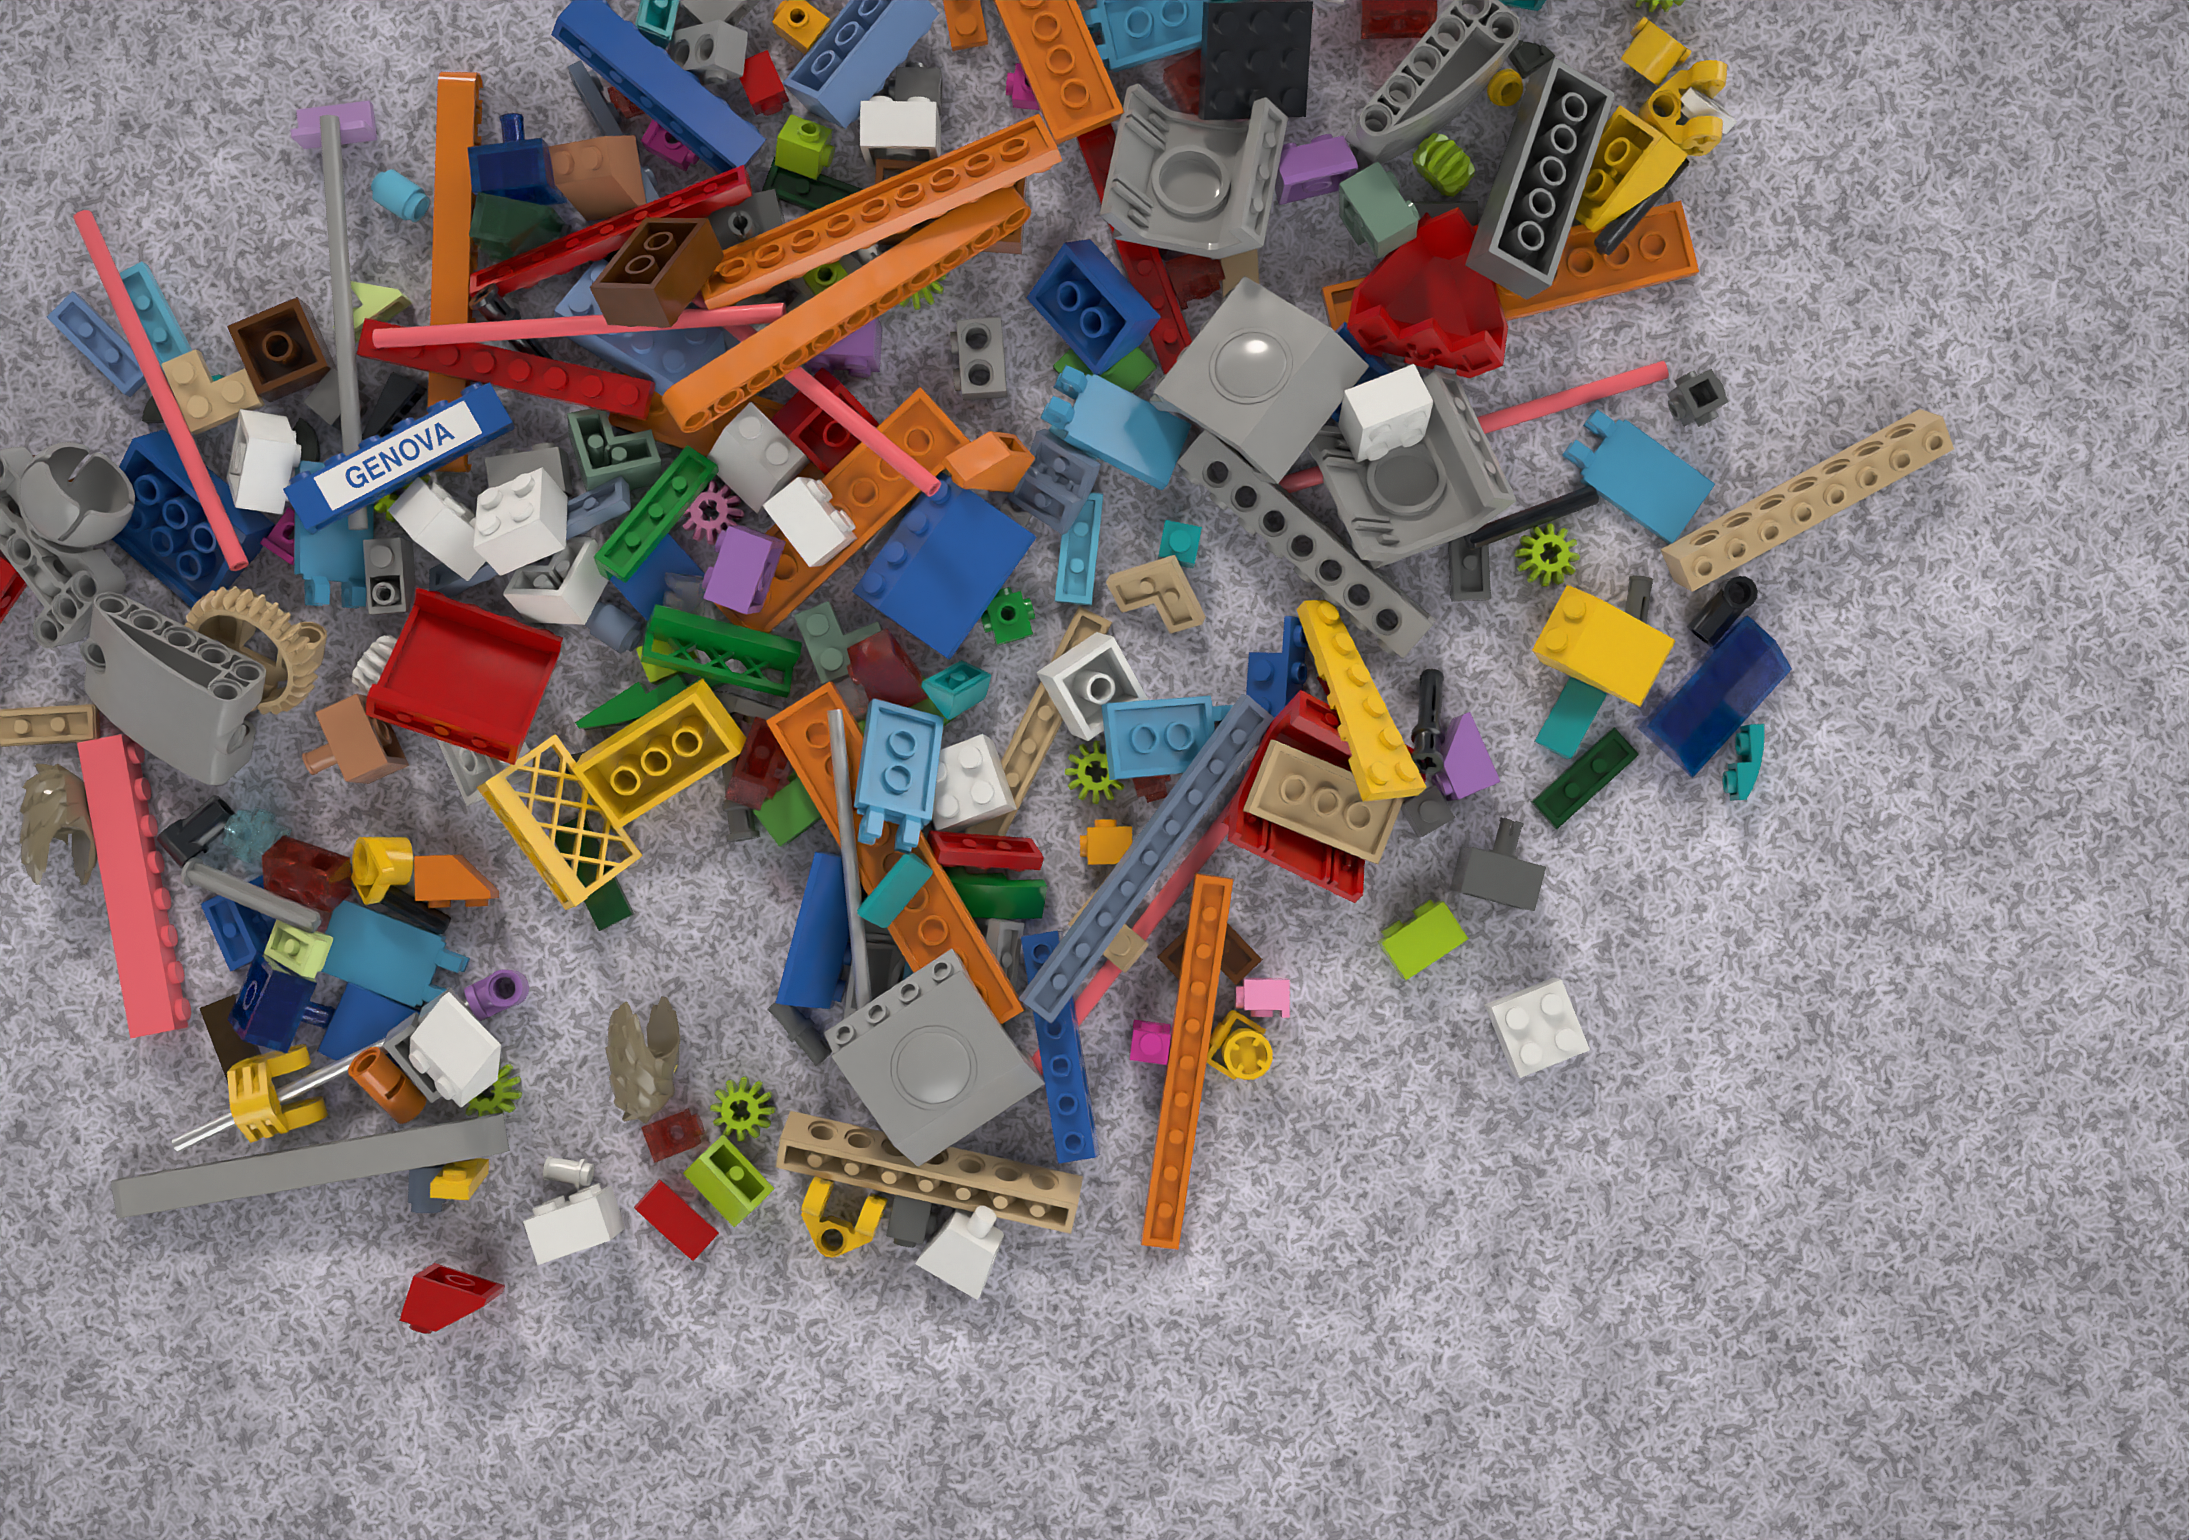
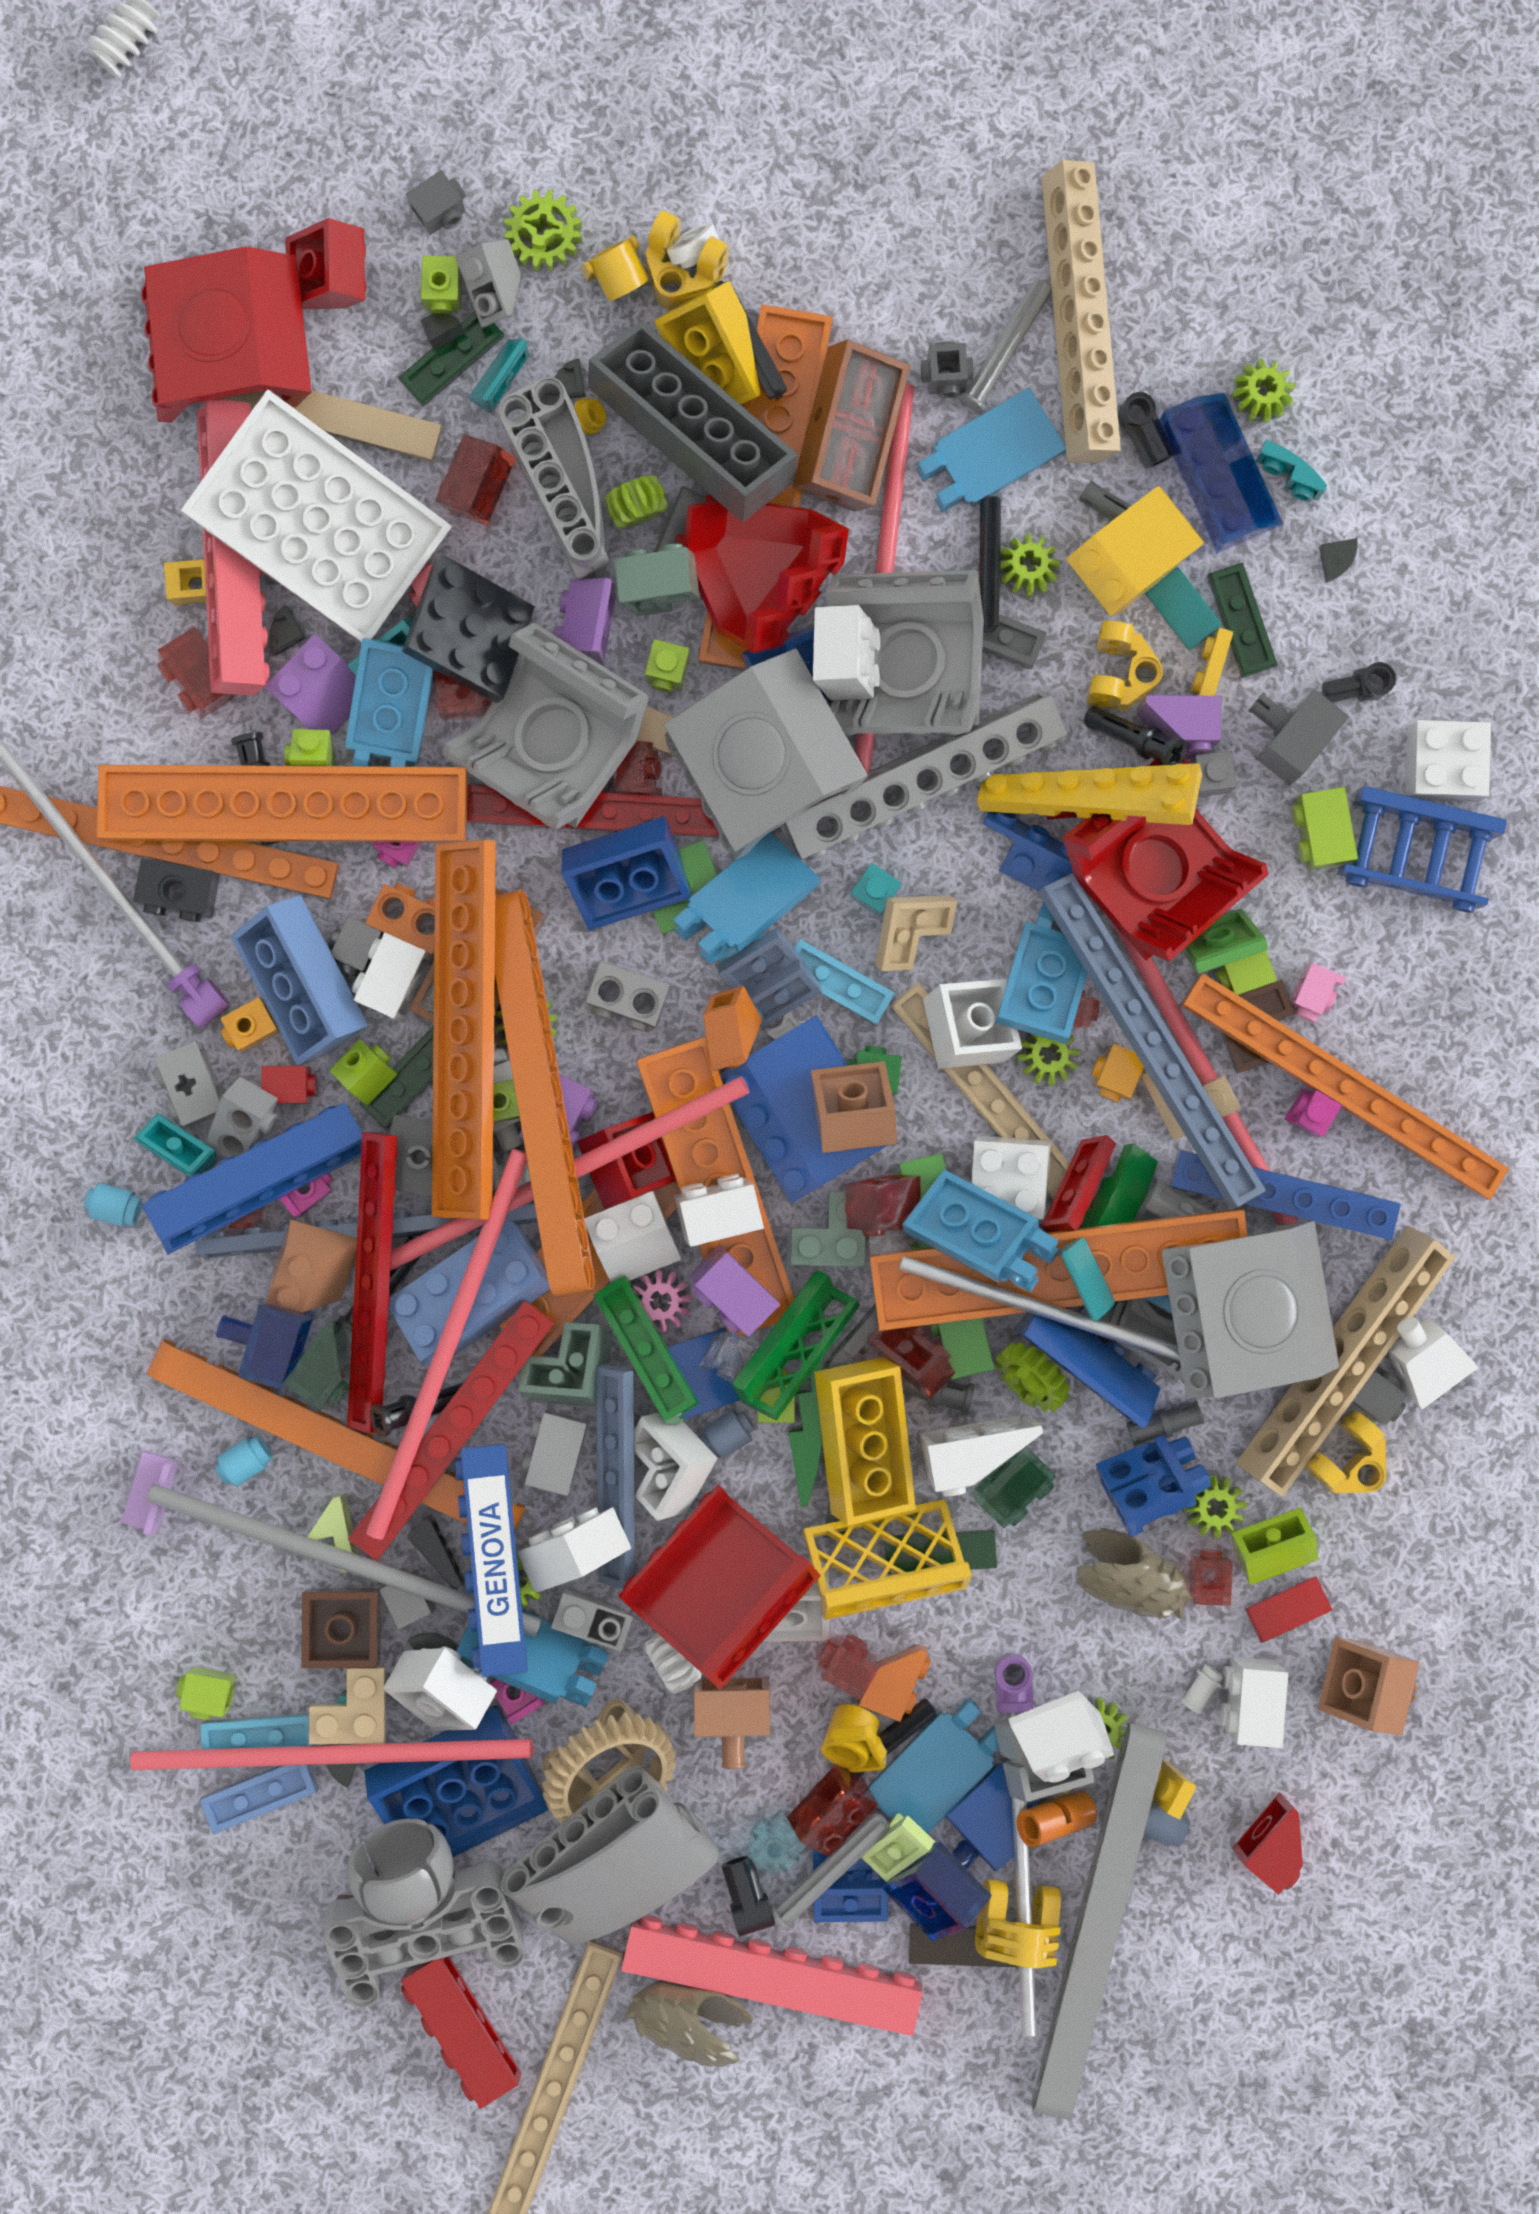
camera: 70 degrees left, 0 degrees up
(173, 254) = (205, 1692): none -> lime brick
(446, 829) = (848, 1664): none -> clear red brick
(521, 521) = (601, 1474): white brick -> none
(634, 1324) = (1369, 1686): none -> nougat brick
(657, 272) = (435, 1249): reddish brown brick -> none
(679, 912) = (1013, 1487): none -> clear green slope
(684, 846) = (970, 1452): none -> white slope
(736, 1036) = (1151, 1481): none -> blue hips
(786, 885) = (1032, 1377): none -> lime gear
(957, 688) = (920, 1146): teal slope -> none
(958, 129) = (407, 925): none -> orange brick
(962, 605) = (854, 1107): none -> nougat slope
(1243, 1050) = (1353, 1032): yellow piece -> none
(1255, 921) = (1246, 973): none -> lime brick
(1272, 888) = (1225, 941): none -> bright green plate
(1303, 261) = (667, 666): none -> lime brick
(1320, 802) = (1167, 866): tan plate -> none
(1460, 681) = (1109, 691): none -> yellow piece
(1478, 1050) = (1445, 821): none -> blue fence
(1543, 763) = (1215, 653): none -> yellow plate
(1570, 911) = (1359, 686): none -> black axle
(1603, 331) = (851, 425): none -> brick
(1683, 842) = (1337, 557): none -> pearl dark grey tile
(1744, 445) = (1006, 346): none -> light grey axle
(1804, 716) = (1249, 386): none -> lime gear

